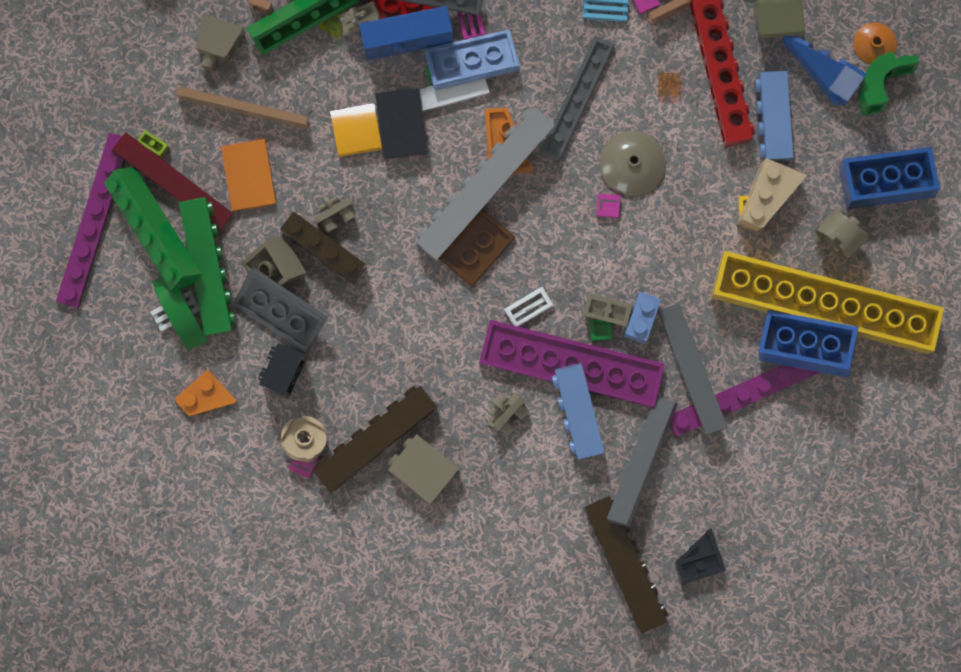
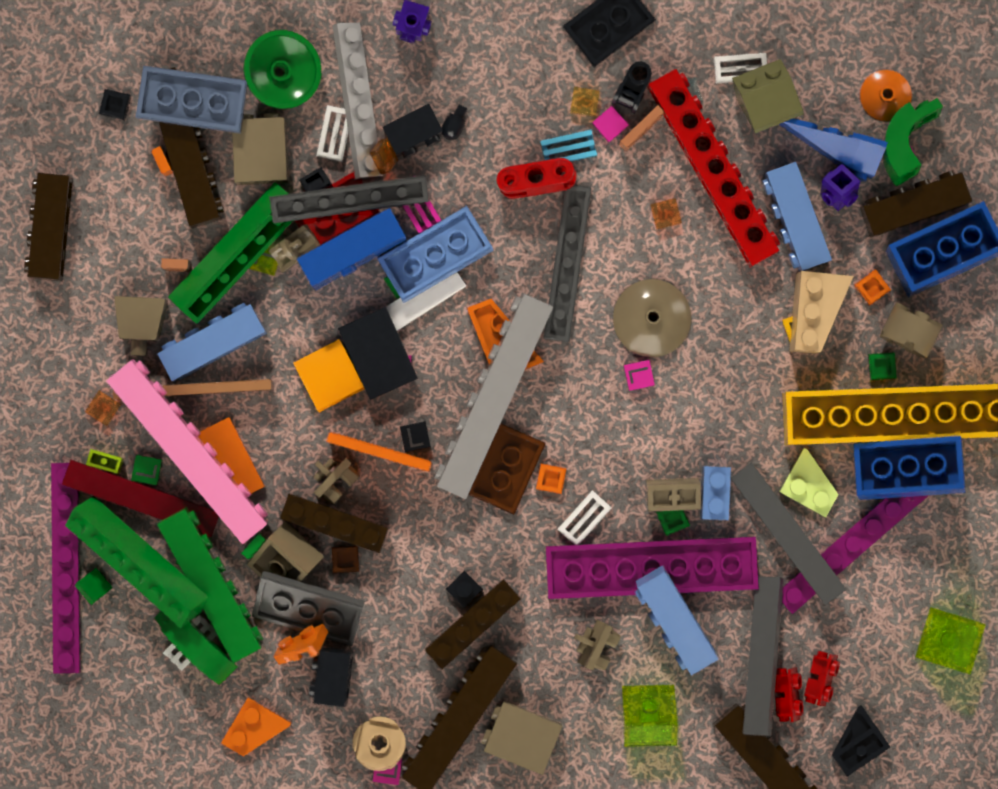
camera: 15 degrees left, 5 degrees up
(111, 241) = (93, 586): none -> green tile
(165, 102) = (103, 408): none -> clear orange tile
(185, 161) = (146, 470): none -> green tile
(222, 152) = (188, 451): none -> bright pink brick
(250, 247) = (254, 546): none -> green tile
(269, 75) = (212, 342): none -> medium blue brick
(272, 336) = (308, 641): none -> orange wing
(323, 281) = (345, 559): none -> reddish brown tile
(378, 200) = (379, 451): none -> orange tile
(410, 200) = (415, 436): none -> black tile
(411, 363) = (472, 624): none -> dark brown brick
(412, 335) = (464, 588): none -> black plate
(511, 267) = (551, 478): none -> orange tile
(533, 484) = (649, 715): none -> clear neon green slope
(589, 23) = (522, 174): none -> red piece
(657, 493) = (790, 704): none -> red hinge
(682, 505) = (821, 688): none -> red hinge
(721, 336) = (809, 485): none -> yellowish green wing
(801, 497) = (950, 640): none -> clear neon green slope
(809, 258) = (882, 366): none -> green tile
(816, 103) = (840, 188): none -> dark purple brick
(819, 192) = (872, 287): none -> orange tile
(874, 135) = (915, 204): none -> dark brown brick

